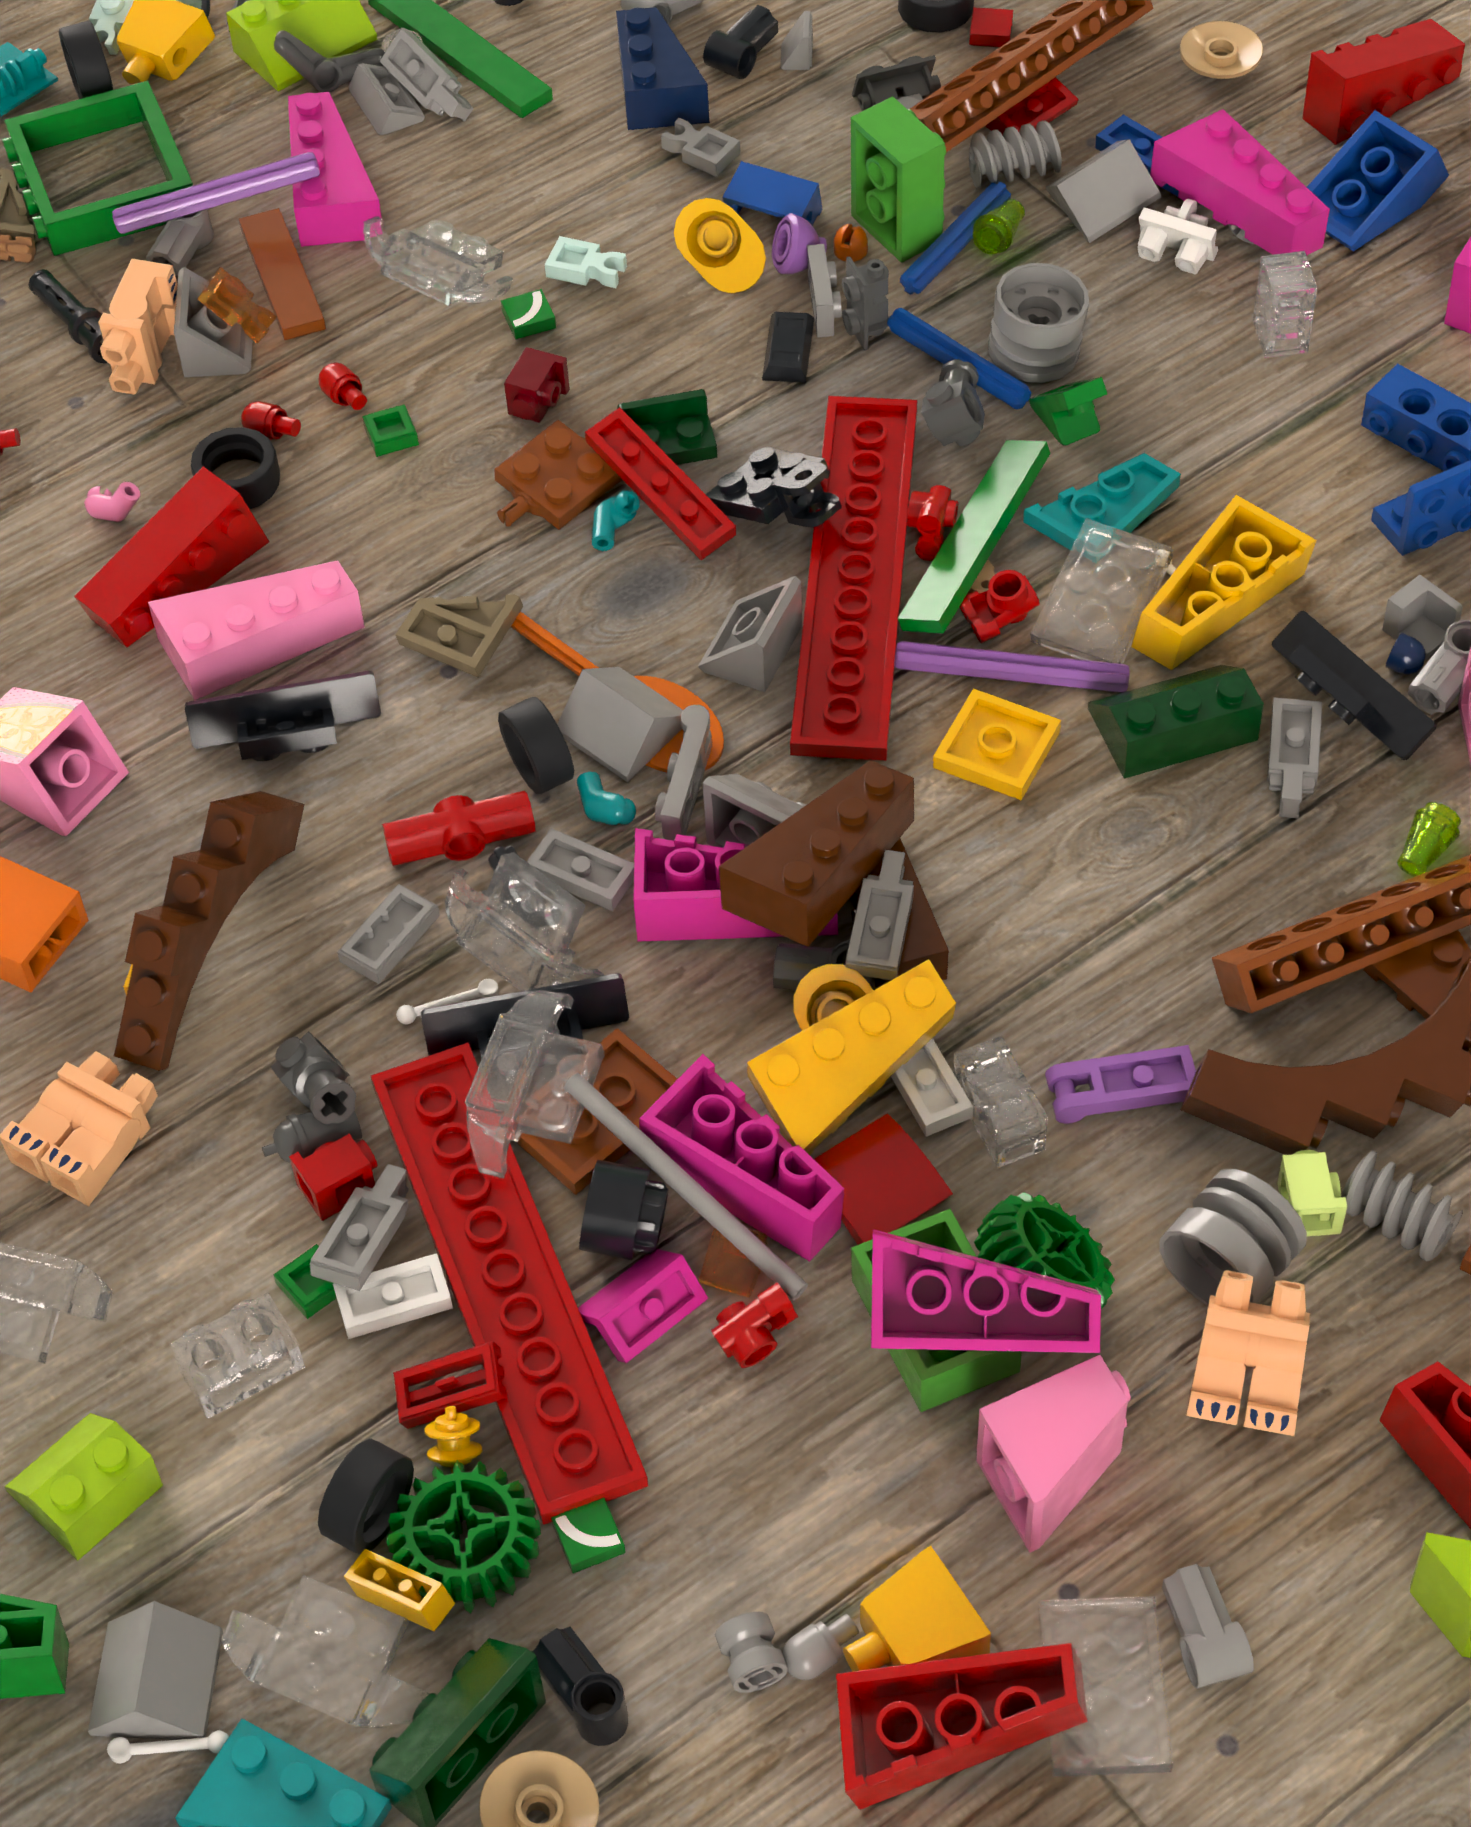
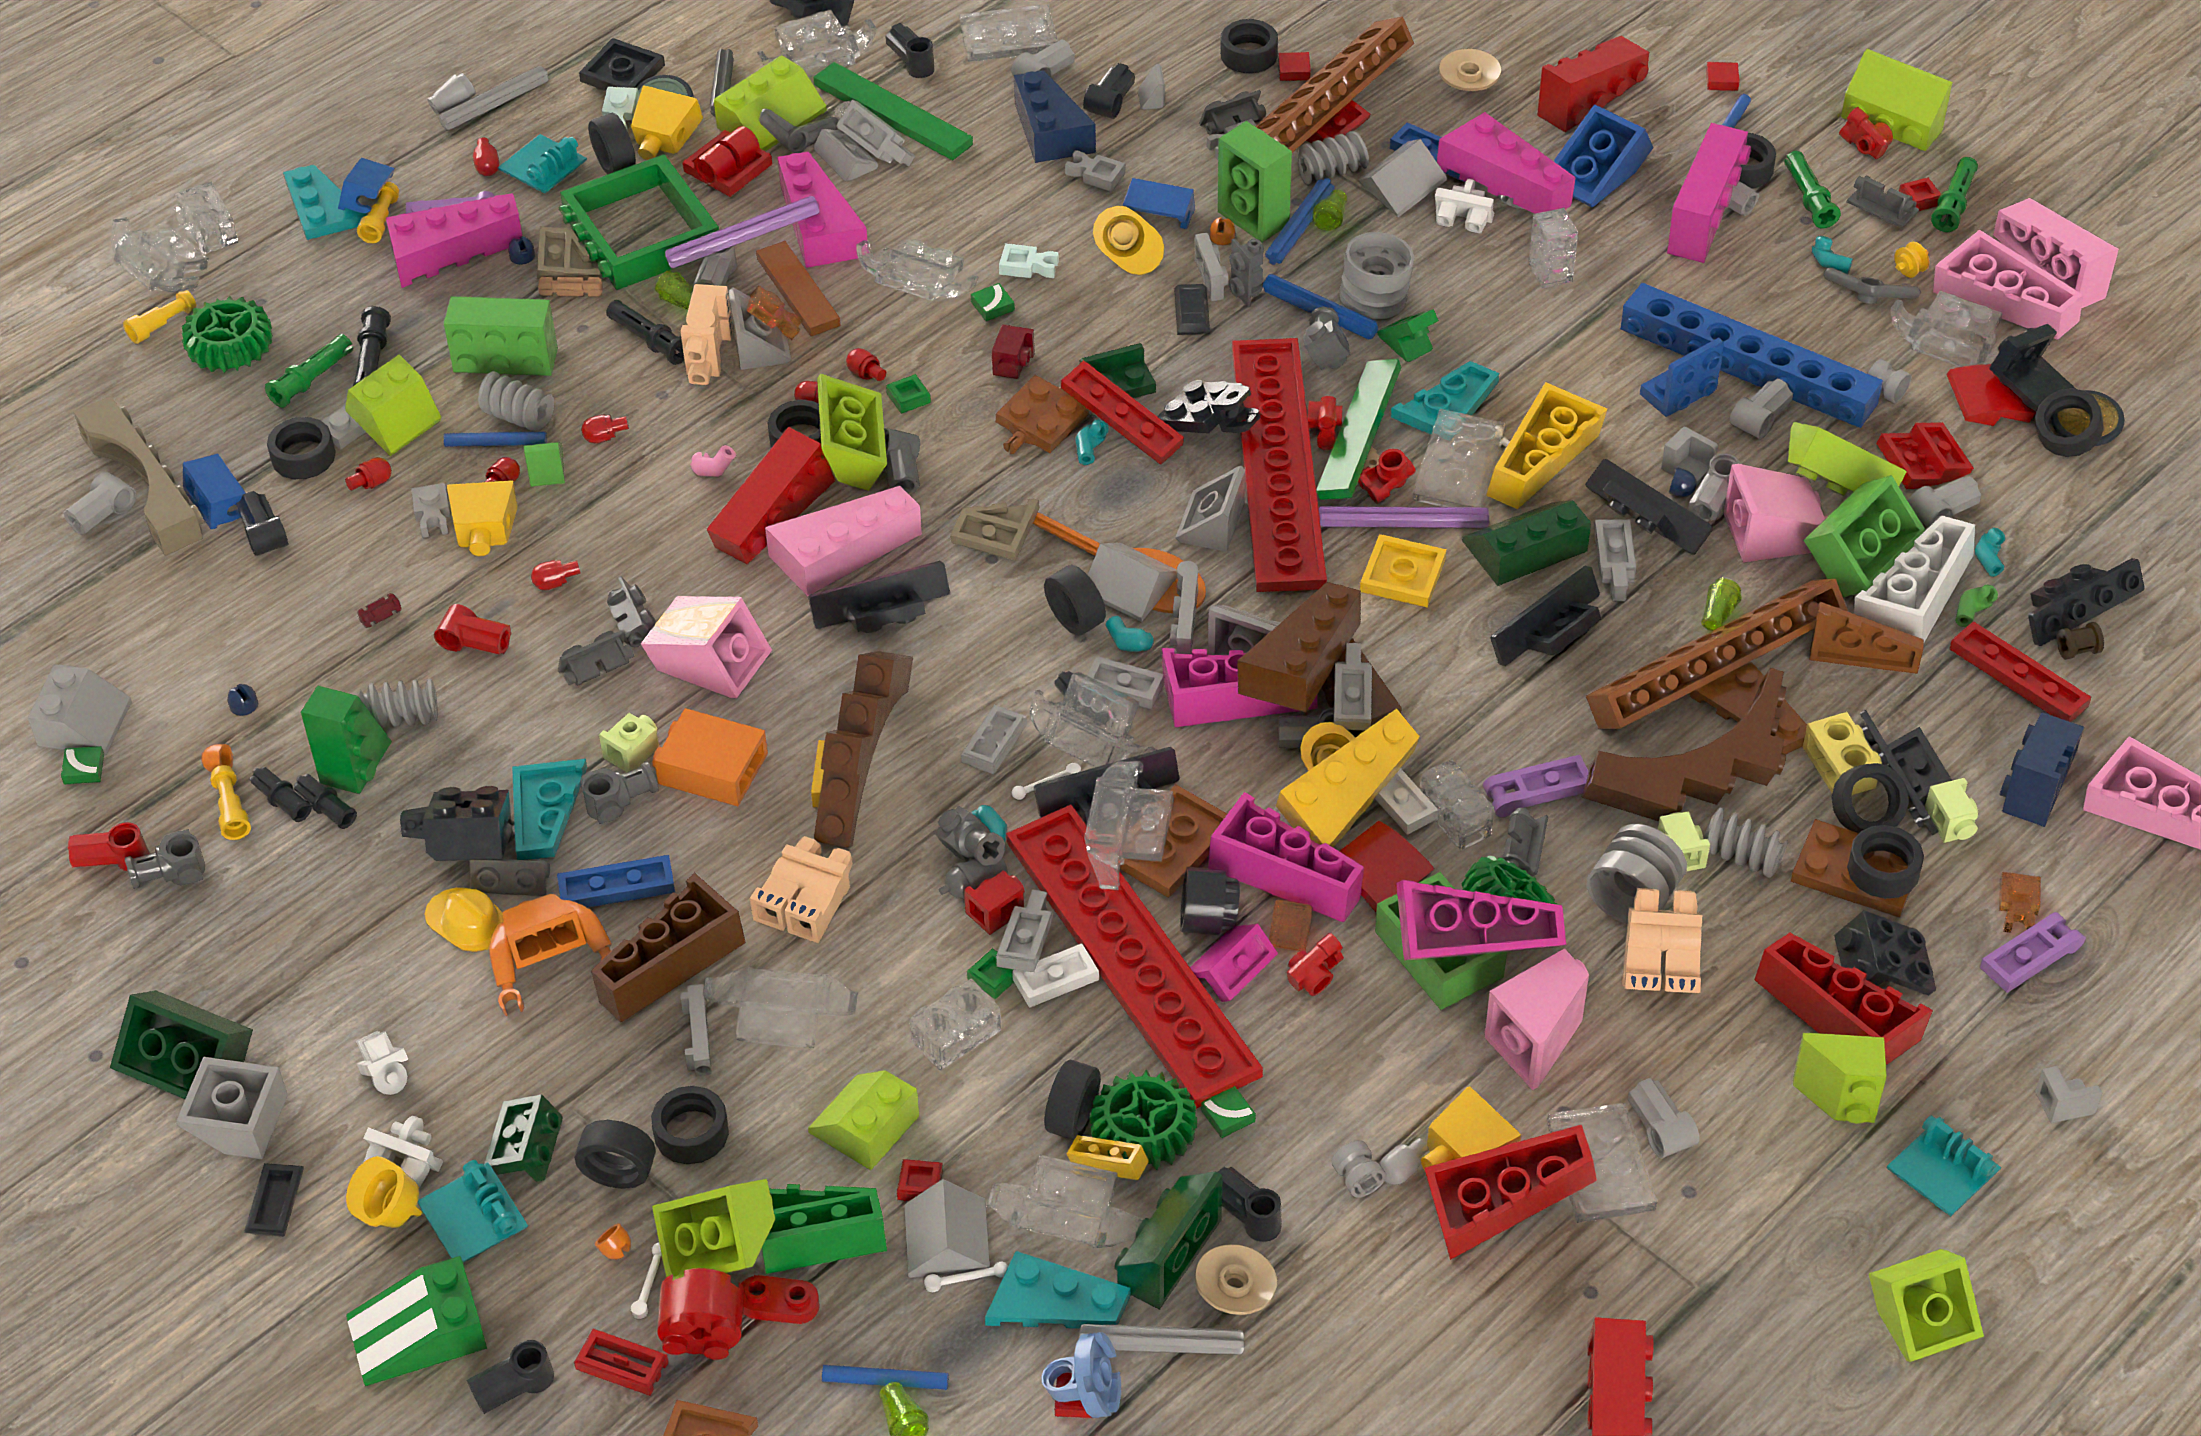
camera: 10 degrees left, 5 degrees down
(115, 256) = (674, 289): none -> clear neon green cone
(136, 1583) = (917, 1177): none -> red tile
(232, 96) = (728, 161): none -> red plate
(291, 477) = (852, 431): none -> lime slope
(354, 515) = (901, 456): none -> dark grey piece
(361, 1058) = (992, 820): none -> teal arm
(453, 1438) = (1121, 1059): yellow wheel -> none
(459, 828) = (1028, 663): red piece -> none
(463, 1401) = (1114, 1031): red tile -> none
(686, 1186) = (1248, 876): light grey piece -> none
(791, 243) = (1181, 235): medium lavender brick -> none
(1094, 1160) = (1526, 840): none -> dark grey hinge
(1186, 839) = (1551, 620): none -> black bracket

